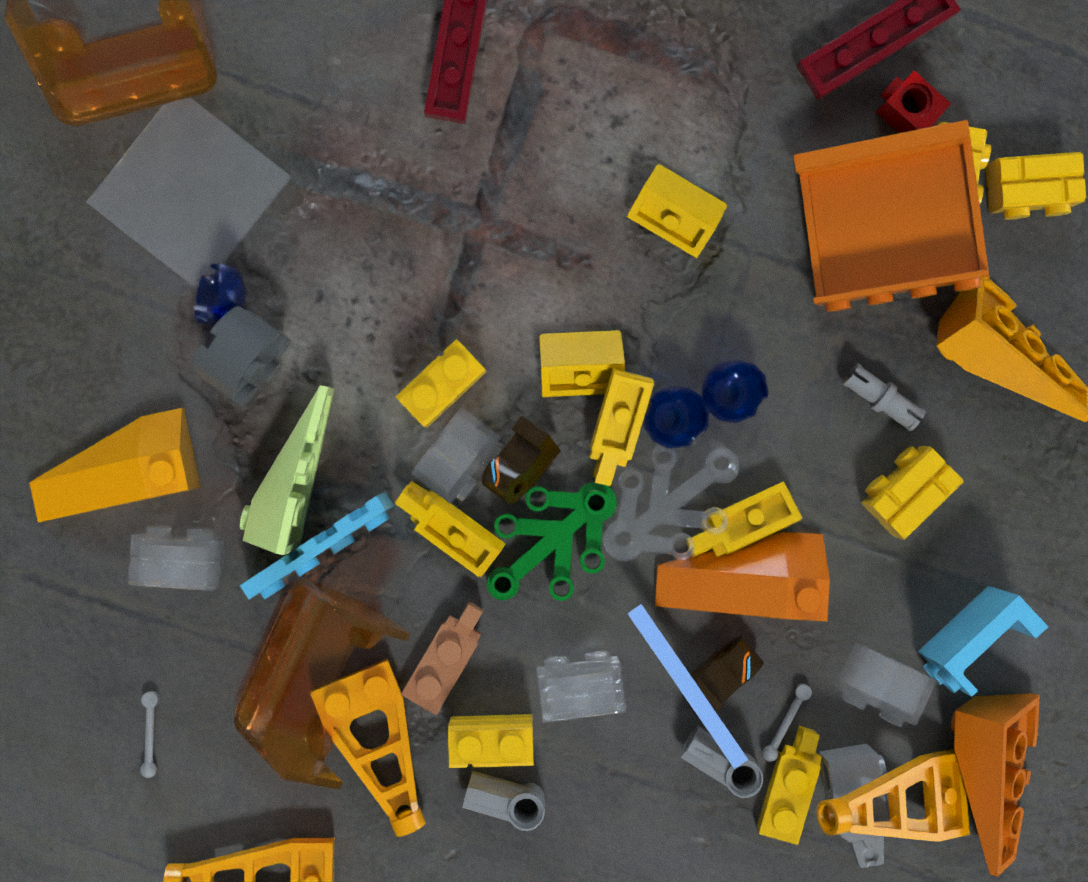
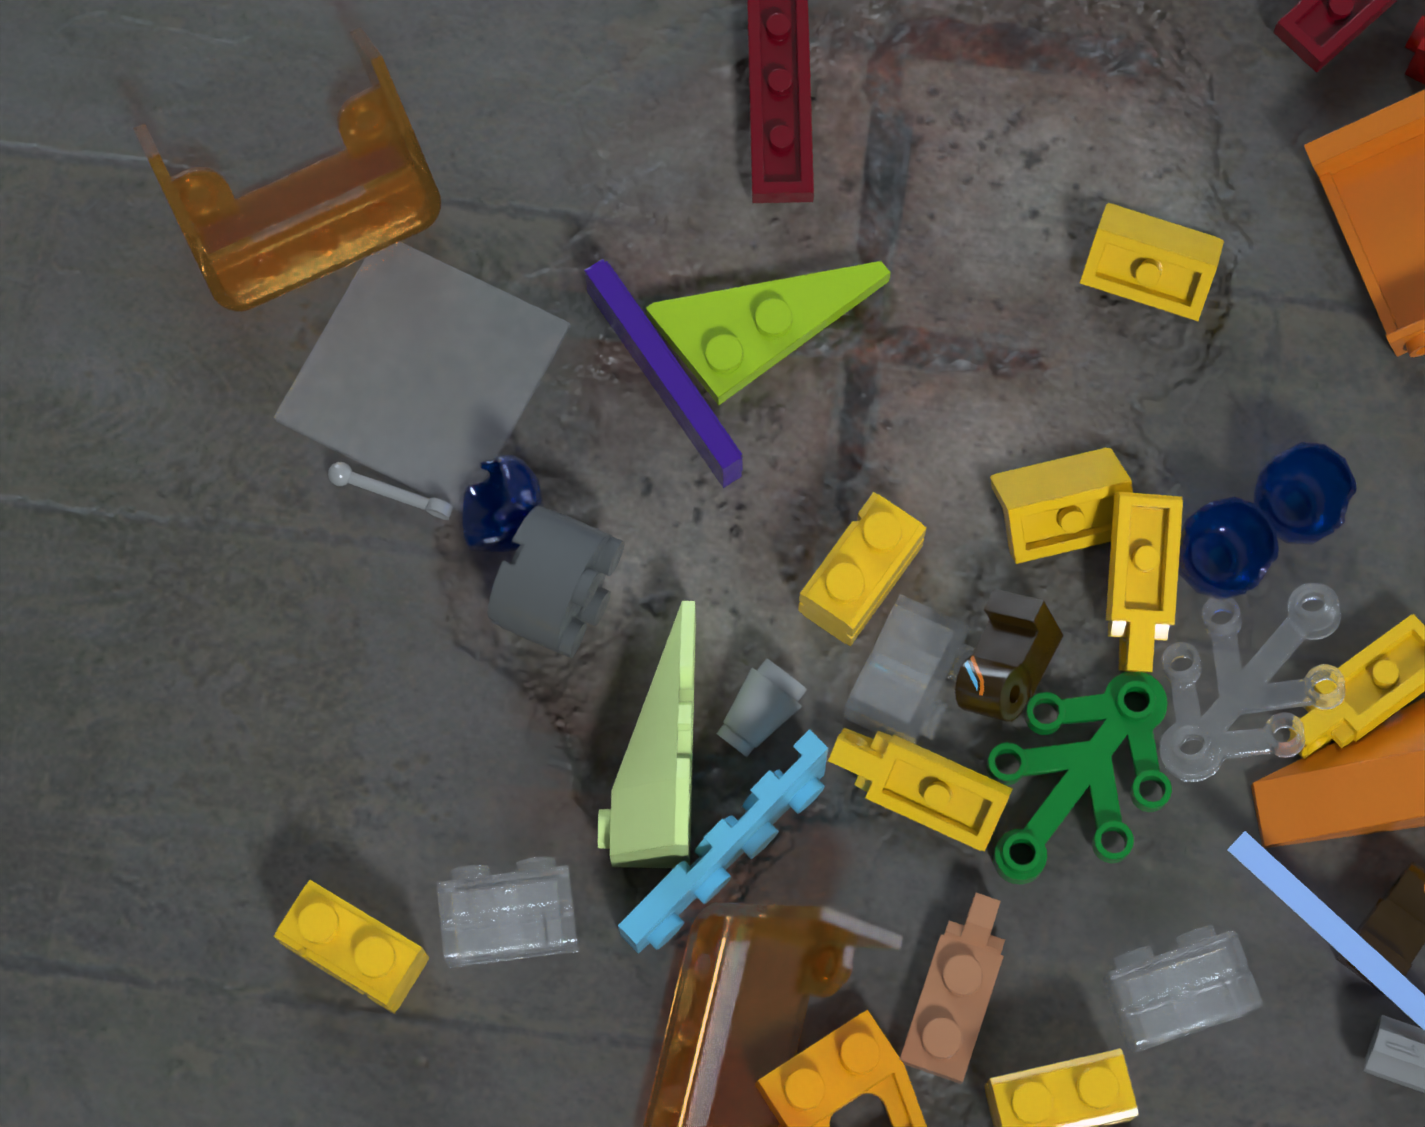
camera: 10 degrees left, 15 degrees down
(75, 562) = (351, 946): none -> yellow brick
(124, 250) = (342, 474): none -> light grey hinge
(129, 466) = (402, 793): light orange wedge -> none
(341, 224) = (664, 373): none -> dark purple tile
(361, 458) = (761, 707): none -> light grey cone
(404, 204) = (747, 329): none -> lime wing

